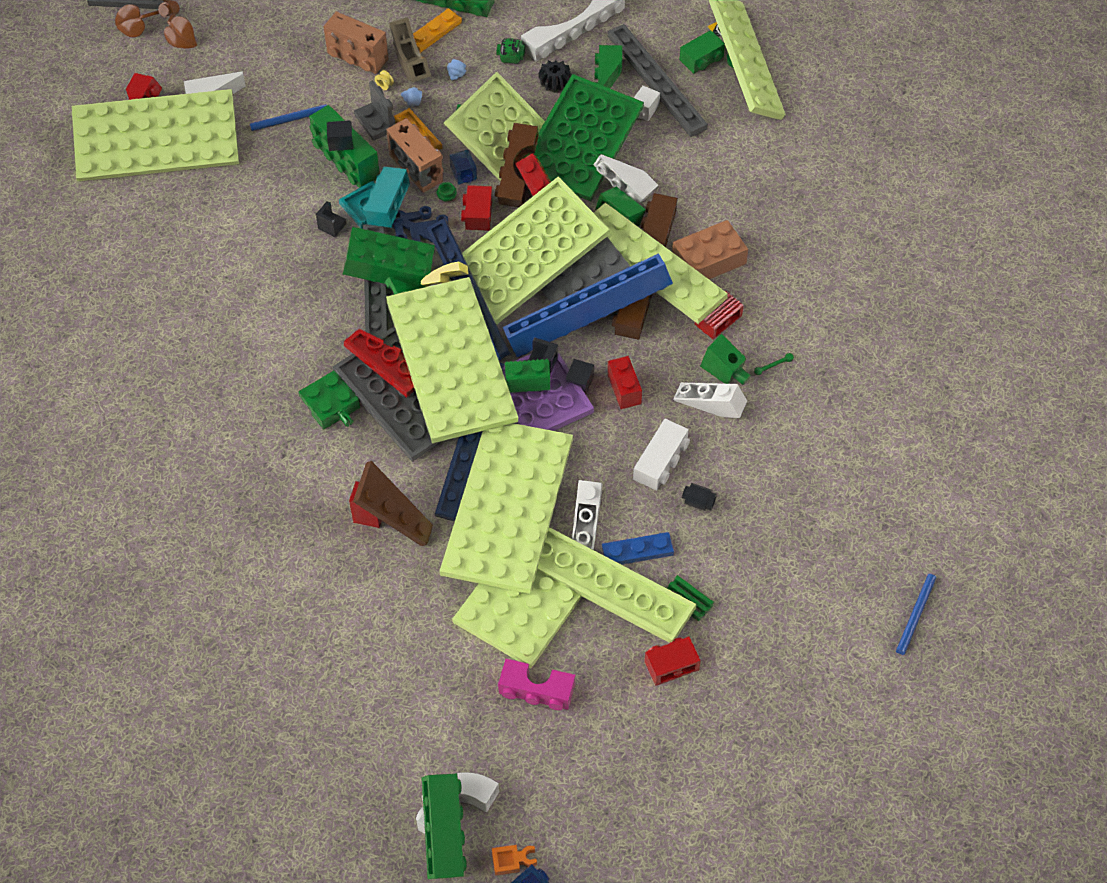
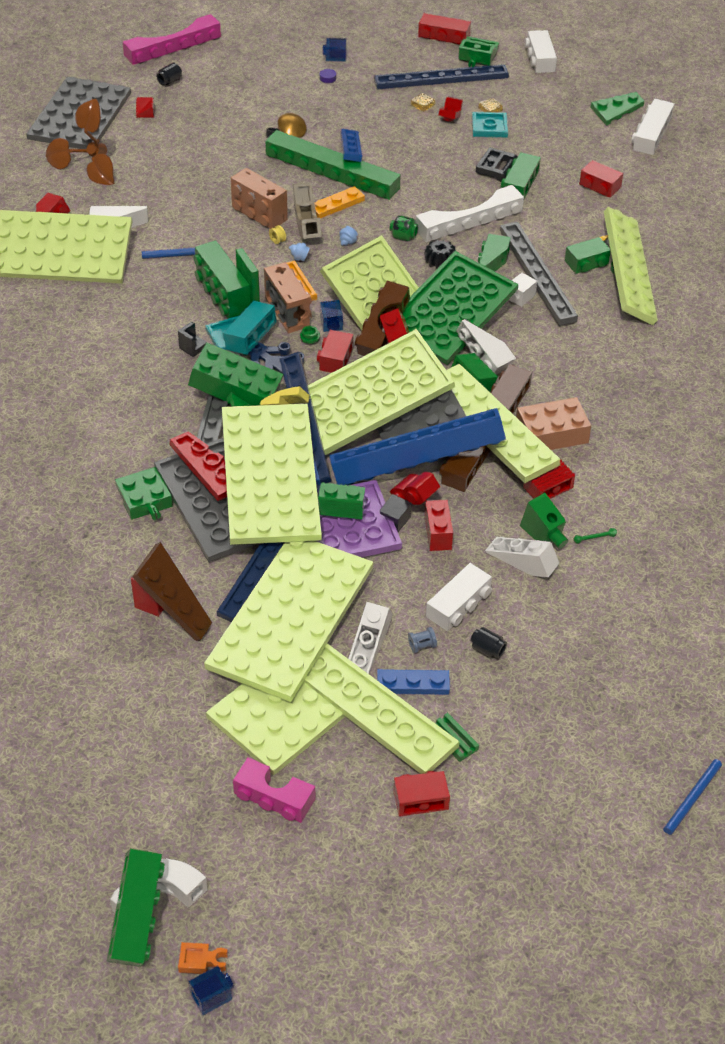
camera: 10 degrees right, 10 degrees down
(339, 135) = (216, 264): black panel -> none
(374, 138) = (249, 272): none -> green tile
(377, 115) = (266, 255): dark grey bracket -> none
(544, 350) = (369, 481): black panel -> none
(594, 347) = (416, 487): none -> red brick
(636, 505) = (416, 644): none -> sand blue bush

